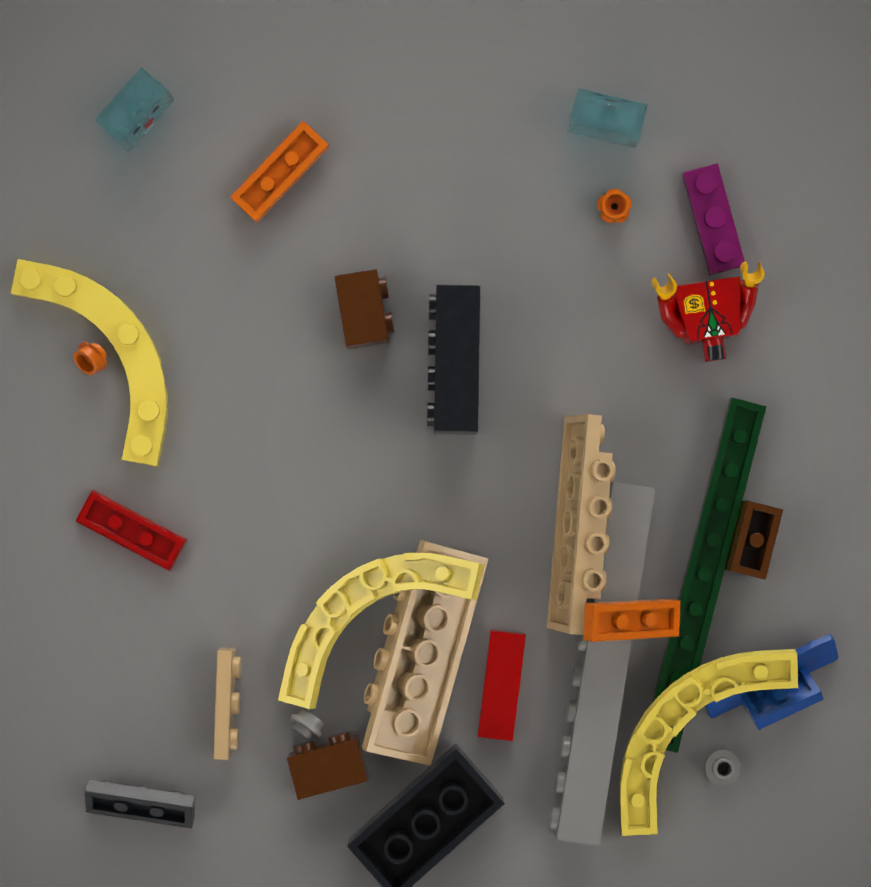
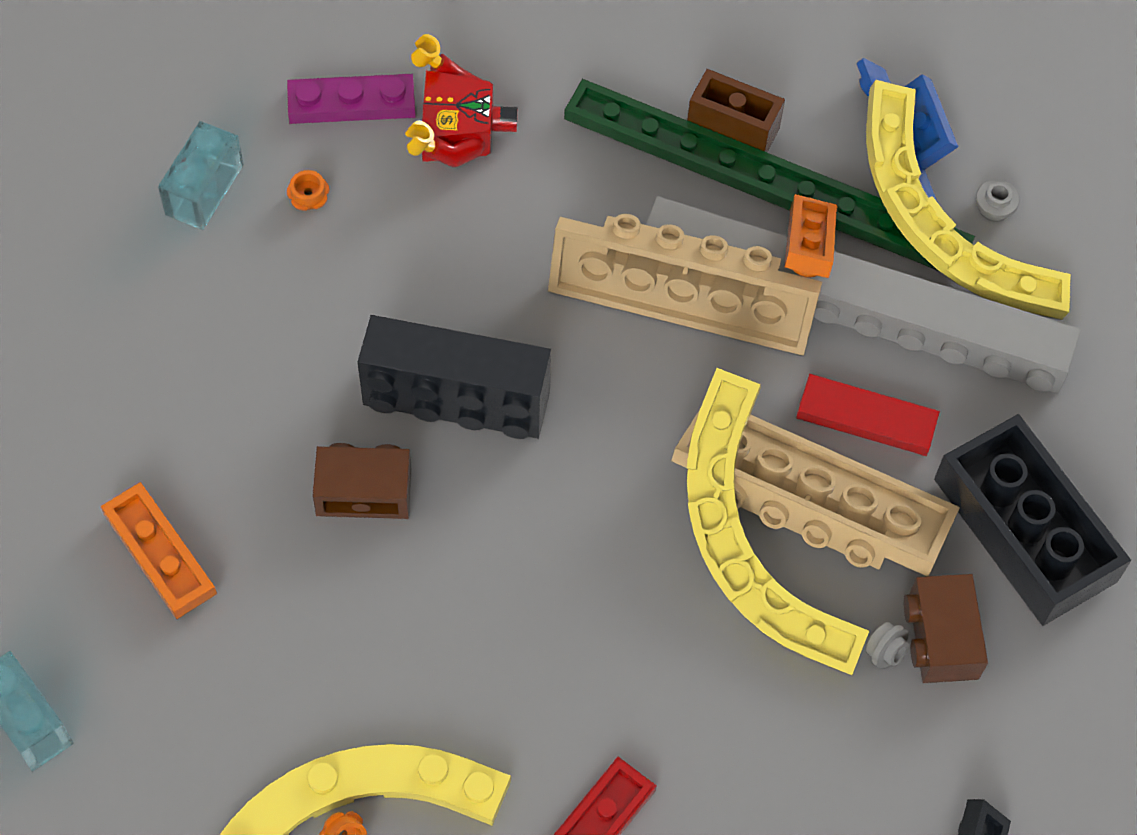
camera: 80 degrees left, 25 degrees down
(227, 703) = (847, 741): tan plate -> none

